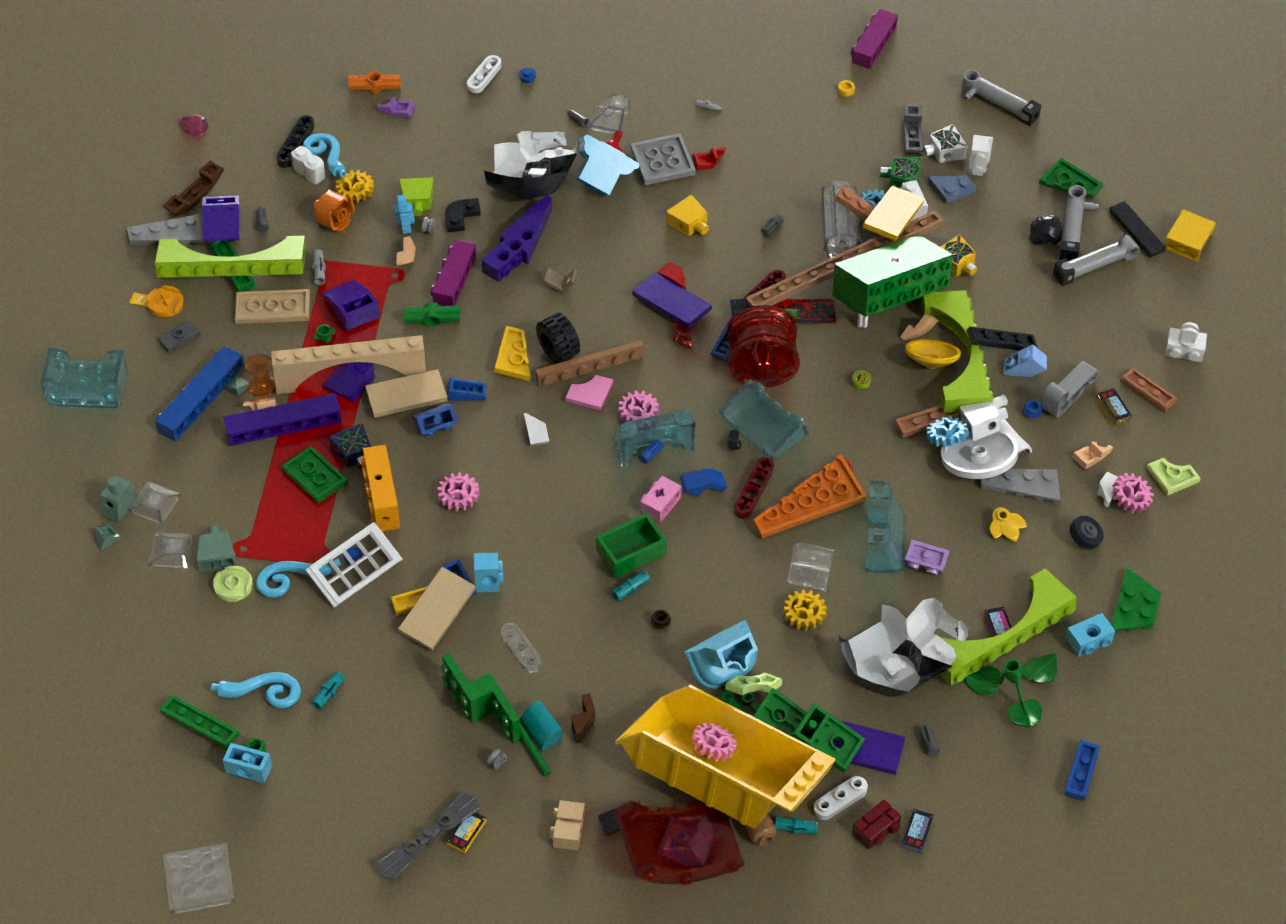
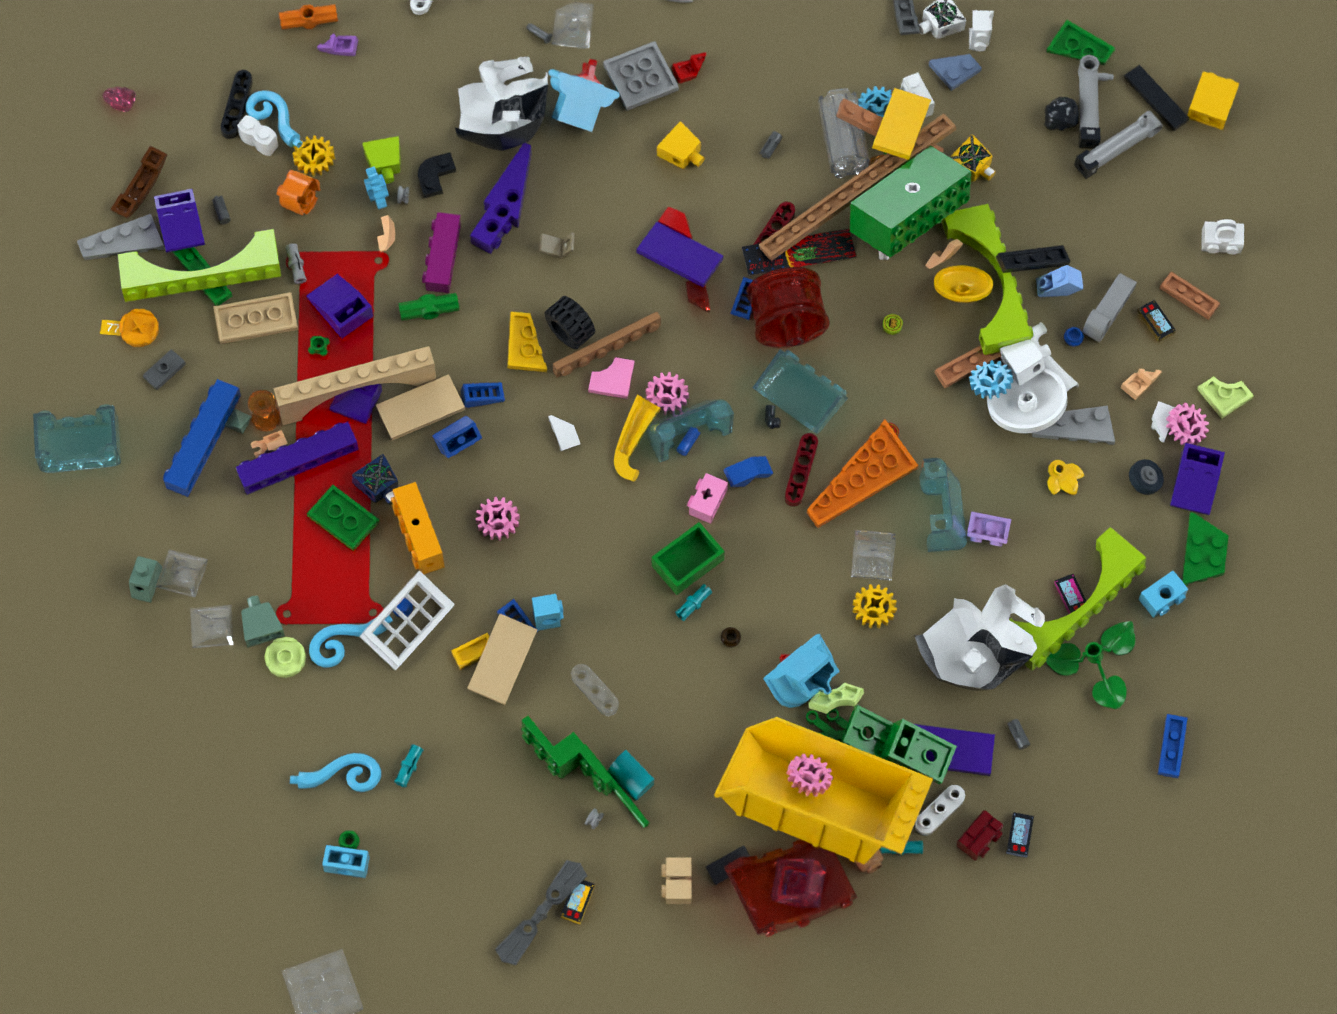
camera: 10 degrees left, 15 degrees up
(105, 536) = (141, 620): sand green slope -> none
(199, 721) = (286, 820): green plate -> none
(583, 722) = (671, 766): reddish brown slope -> none
(602, 431) = (636, 424): none -> yellow animal
(902, 171) = (901, 60): torso -> none
(1136, 539) = (1197, 478): none -> dark purple slope

